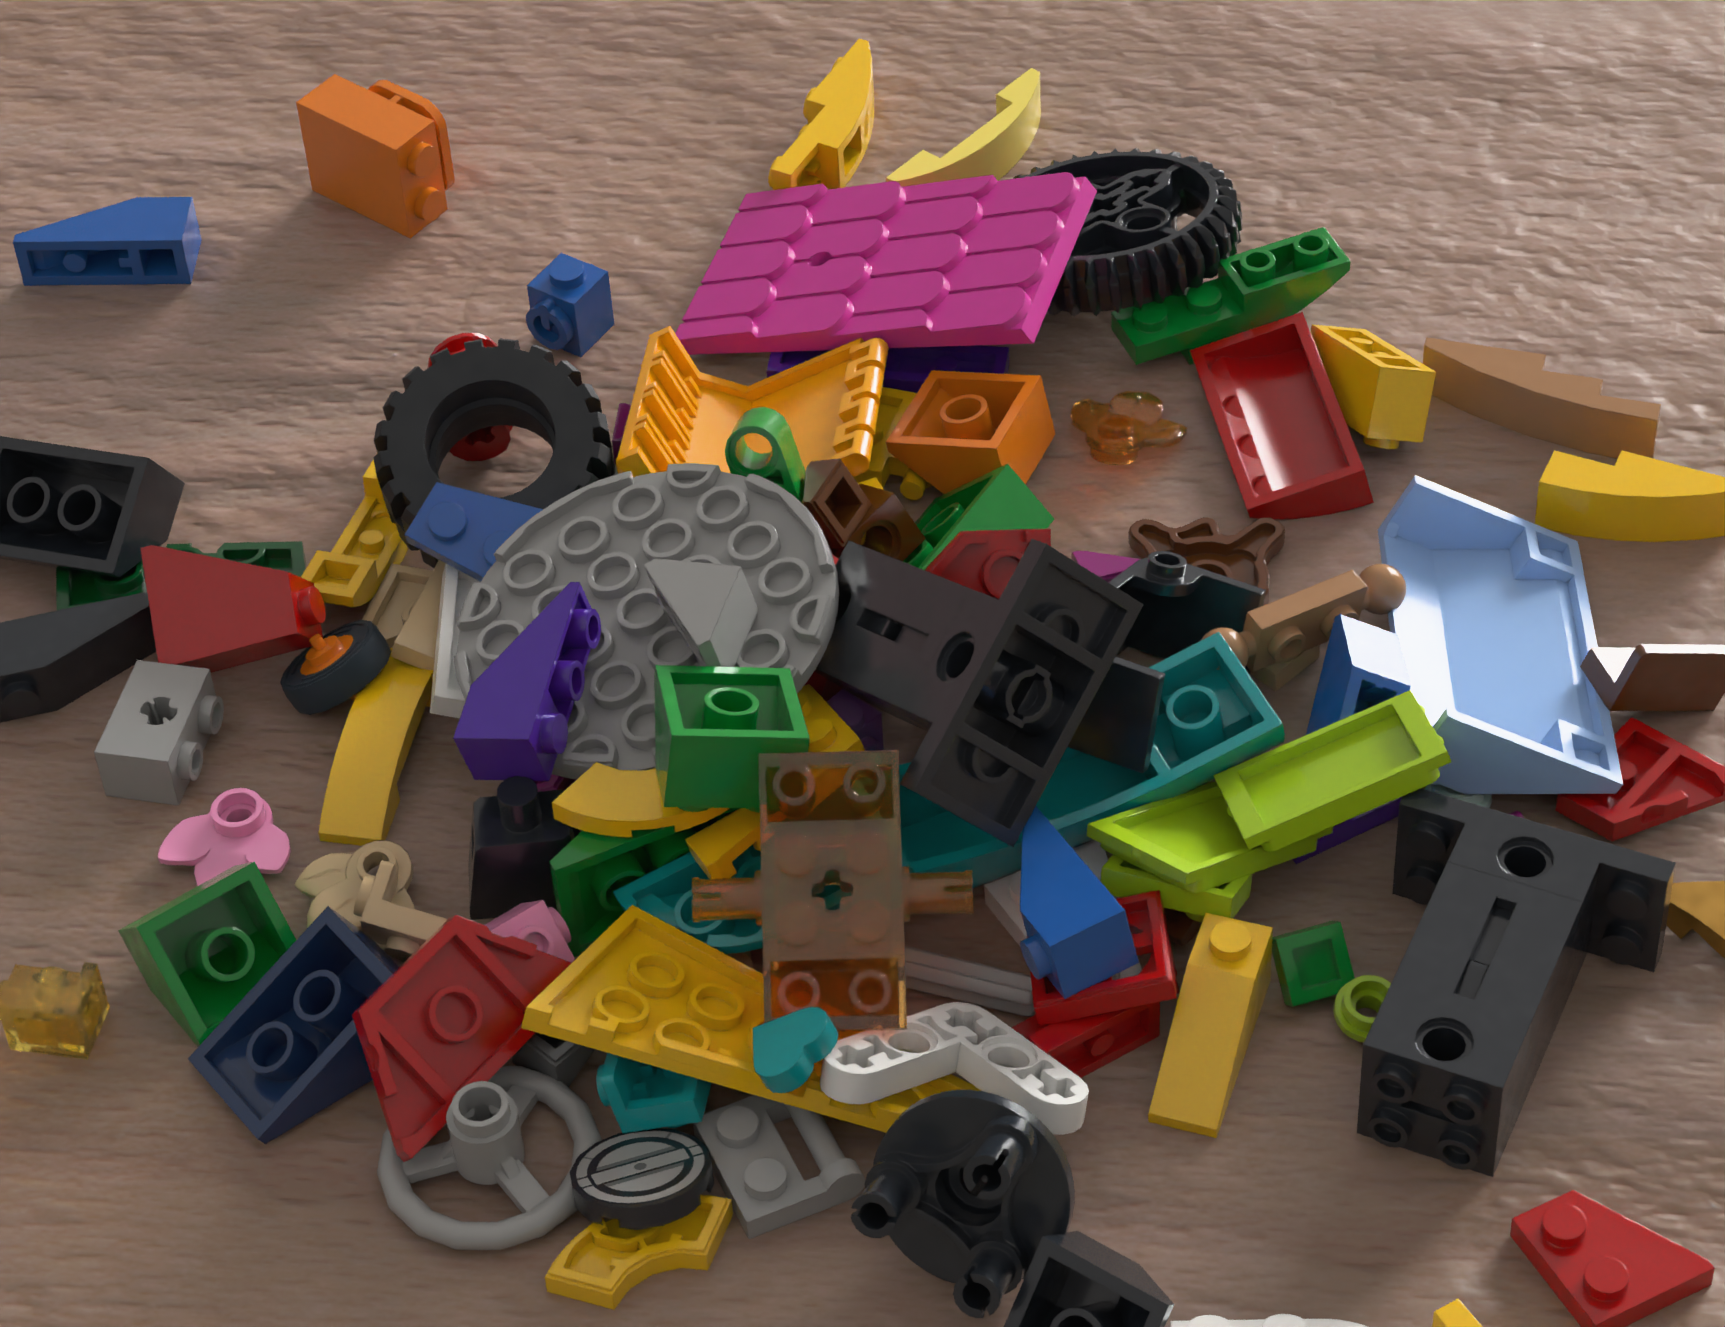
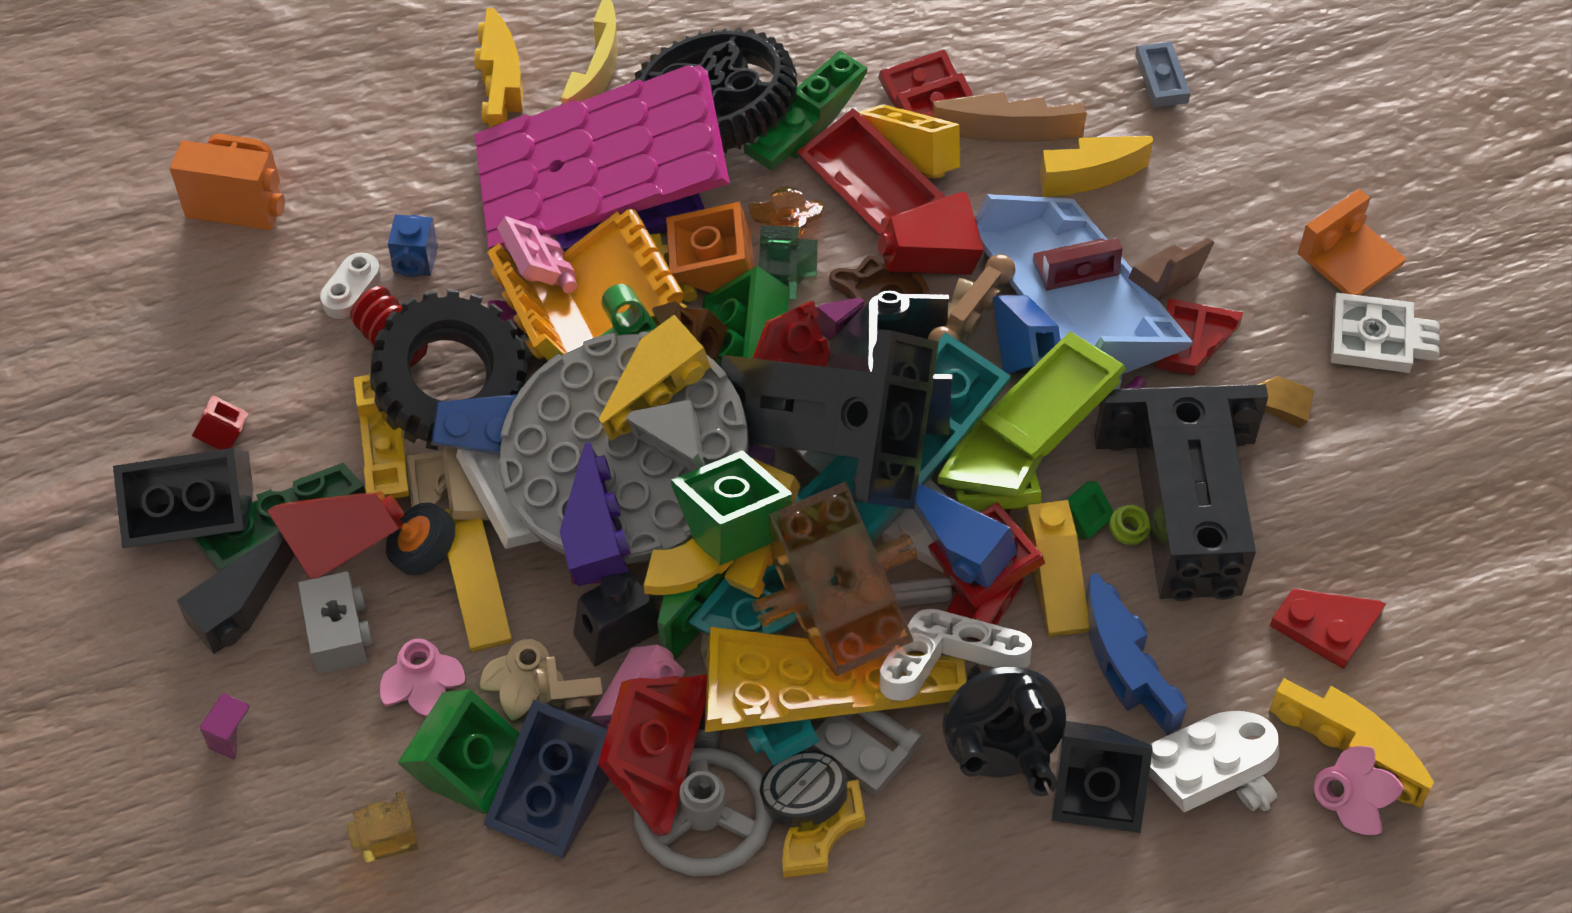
camera: 30 degrees left, 10 degrees up
(115, 245) = (88, 299): blue slope -> none
(183, 443) = (219, 424): none -> red slope
(483, 314) = (353, 278): none -> white plate
(712, 359) = (537, 255): none -> bright pink plate
(734, 519) = (657, 370): none -> yellow slope
(790, 1046) = (862, 680): teal tile -> none
(1076, 479) = (787, 256): none -> clear green brick
(1241, 1182) = (1118, 646): none -> blue slope
(1305, 515) = (933, 238): none -> red slope
(1442, 310) = (923, 81): none -> red slope
(1512, 620) = (1079, 263): none -> dark red panel

